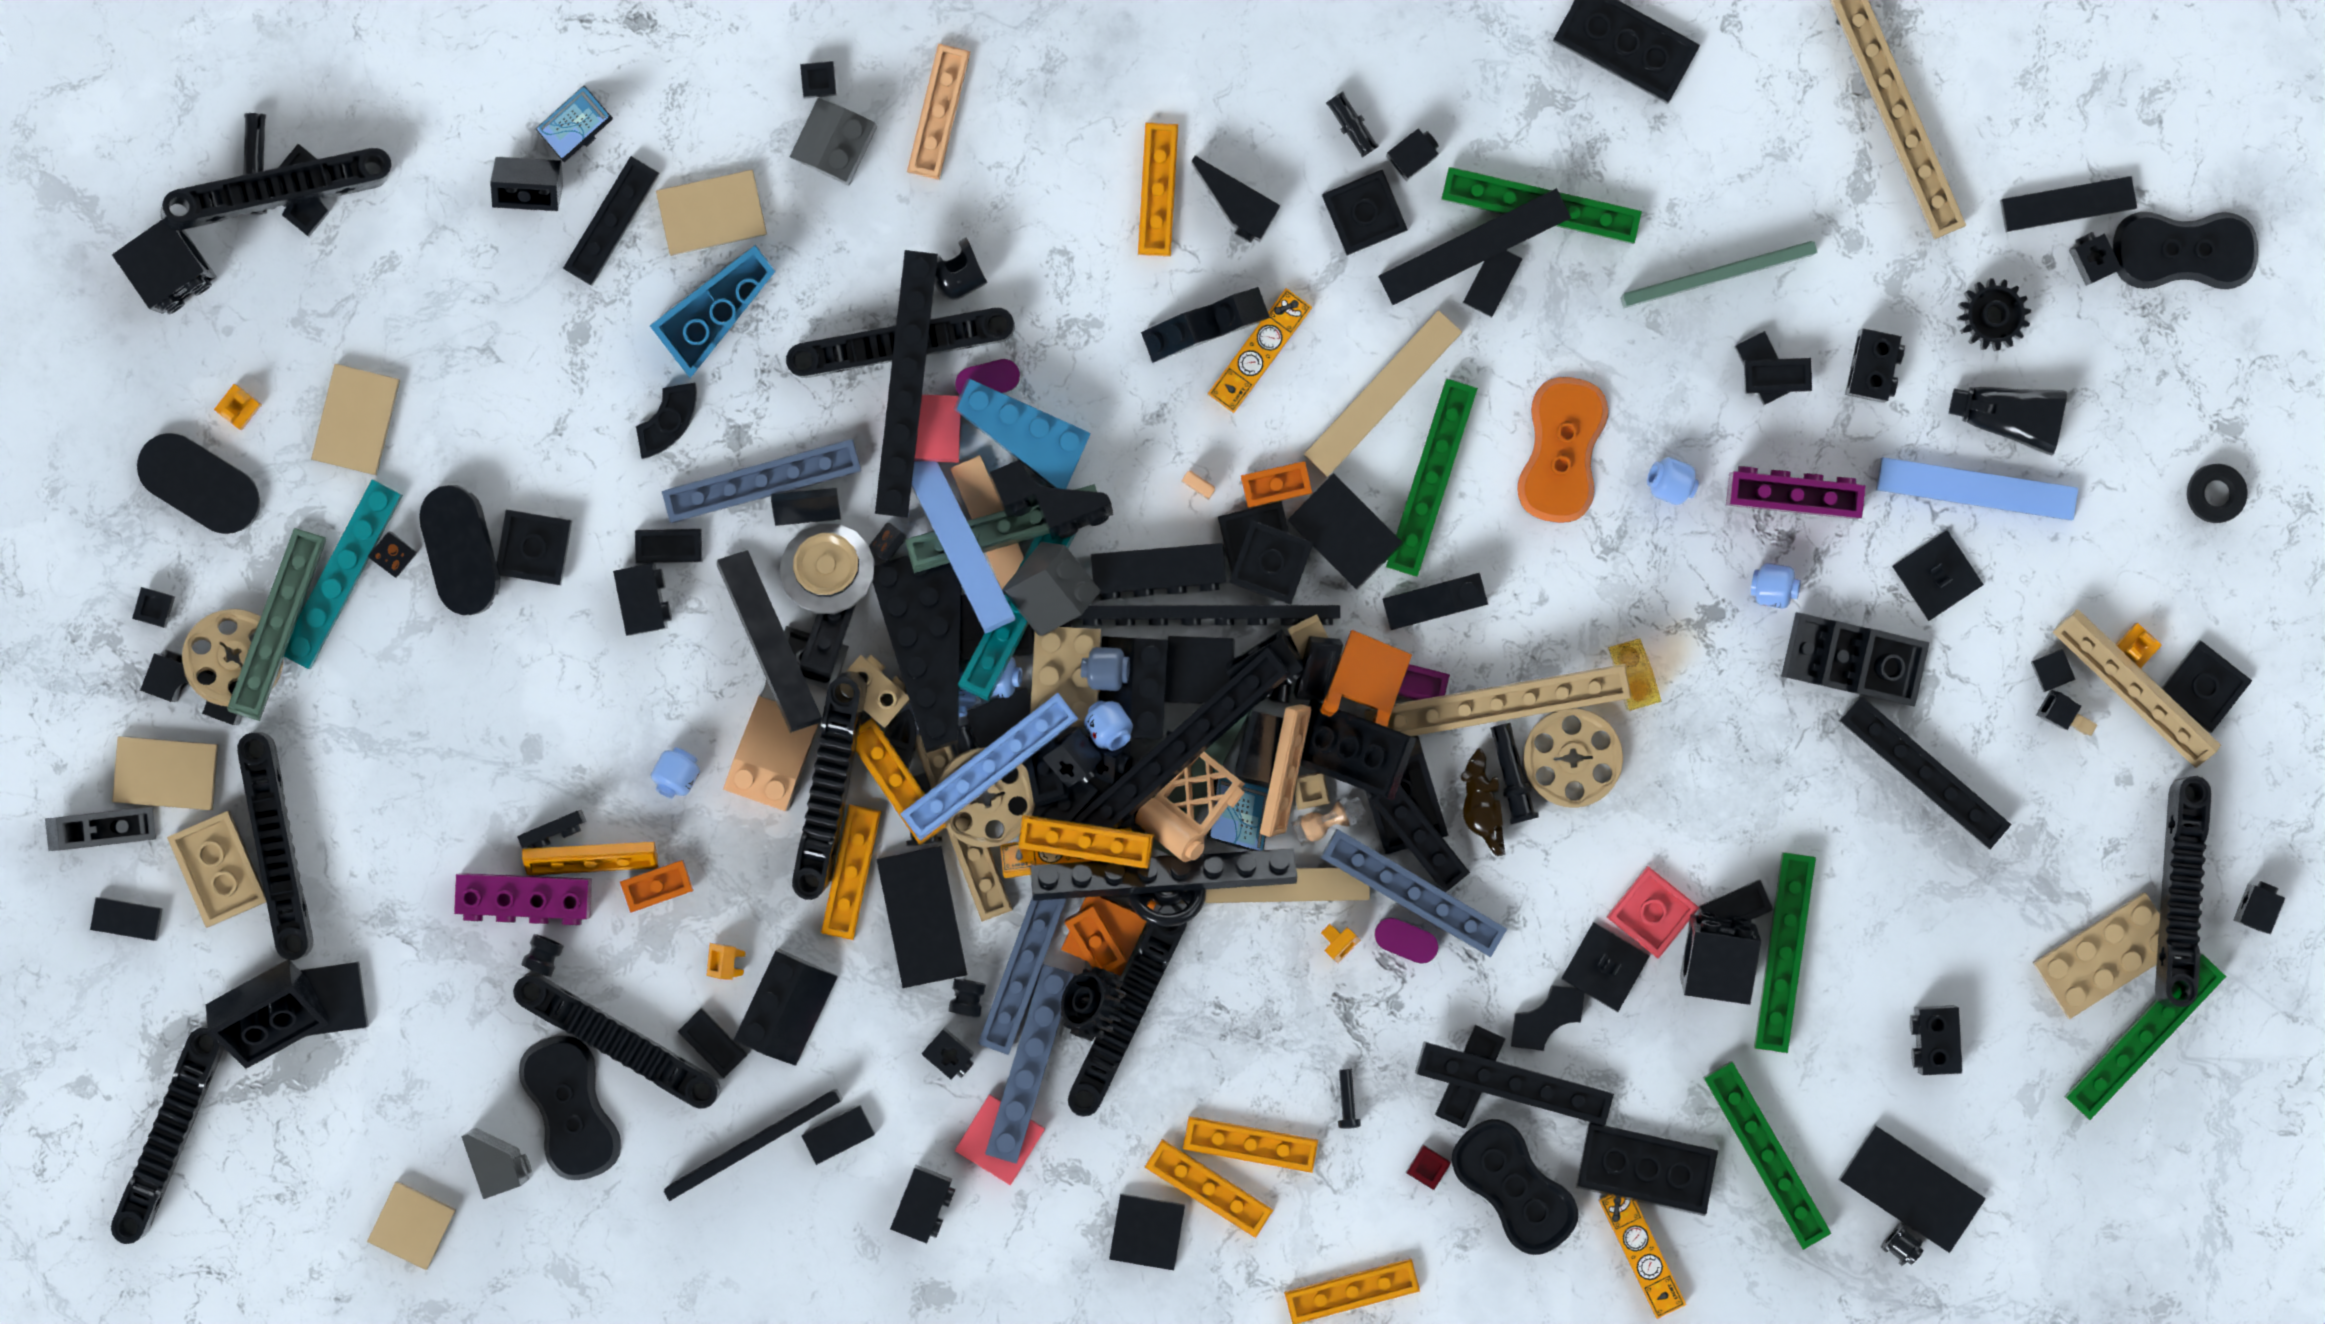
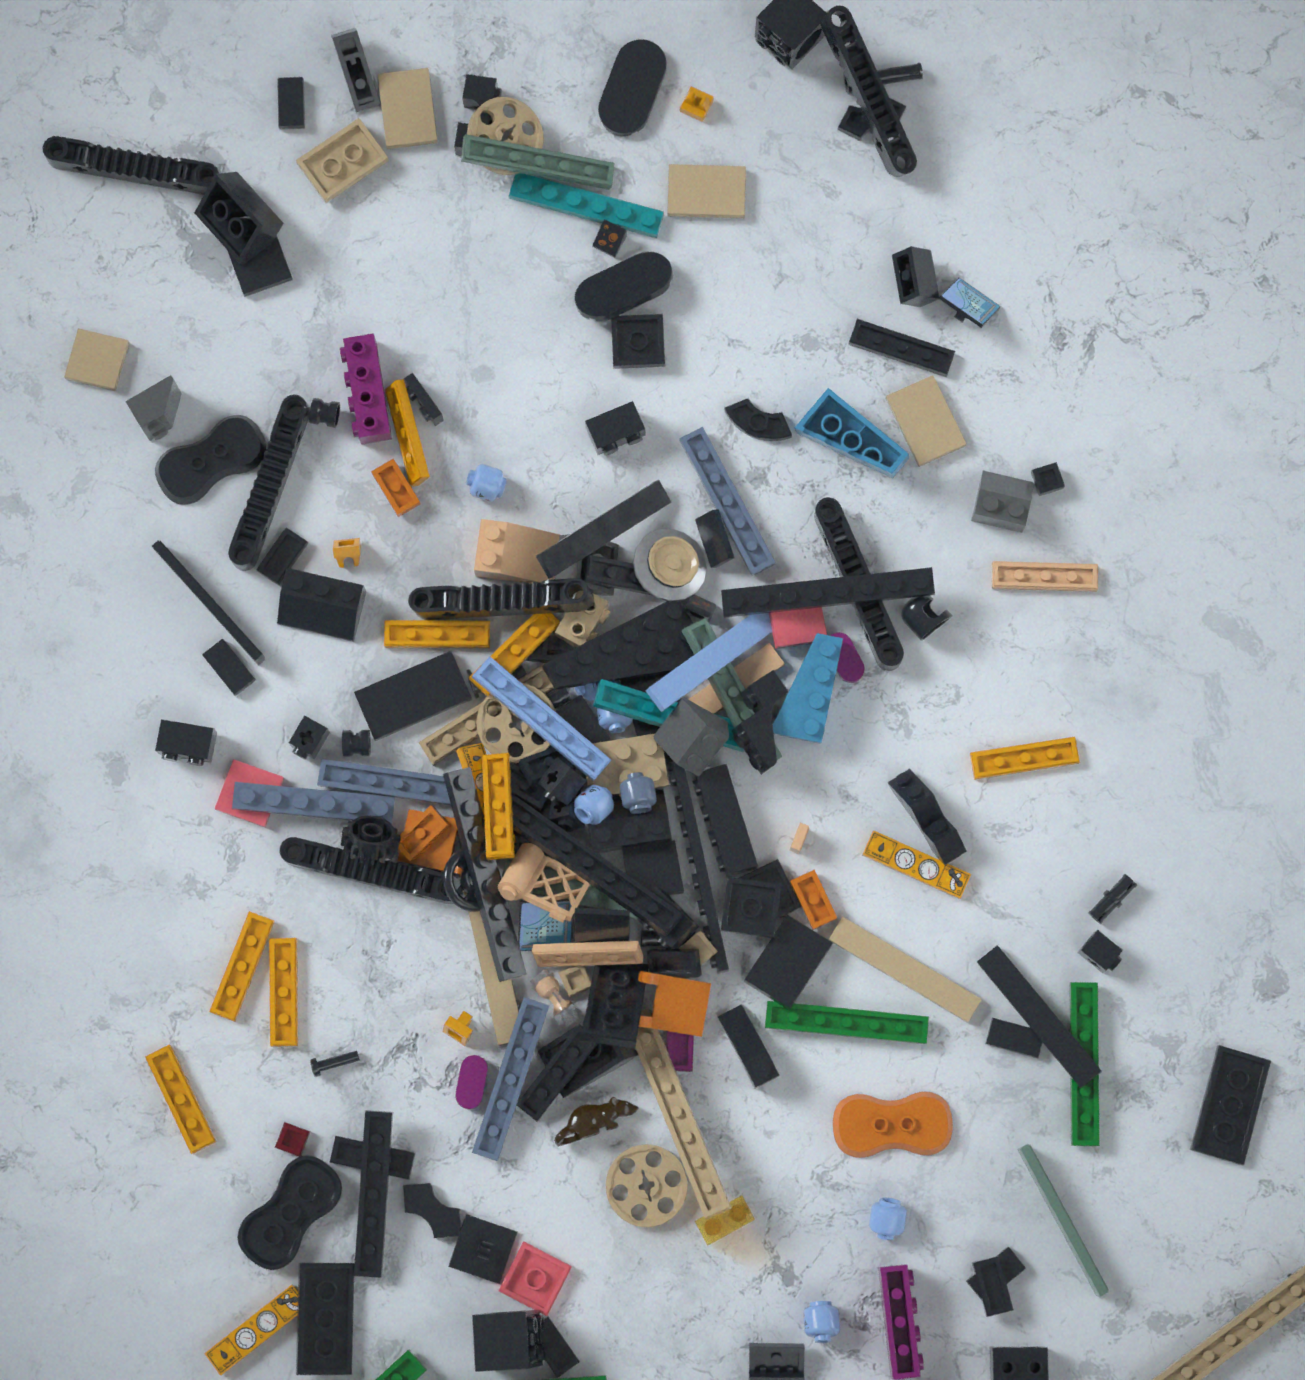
camera: 80 degrees right, 10 degrees down
(153, 607) = (531, 73): black plate -> none
(274, 845) = (368, 197): black gear -> none
(668, 546) = (661, 442): black tile -> none
(1147, 1231) = (197, 924): black tile -> none
(1242, 206) = (1027, 826): black slope -> none
(1364, 212) = (1045, 924): black tile -> none
(1516, 789) = (613, 1144): black pin -> none

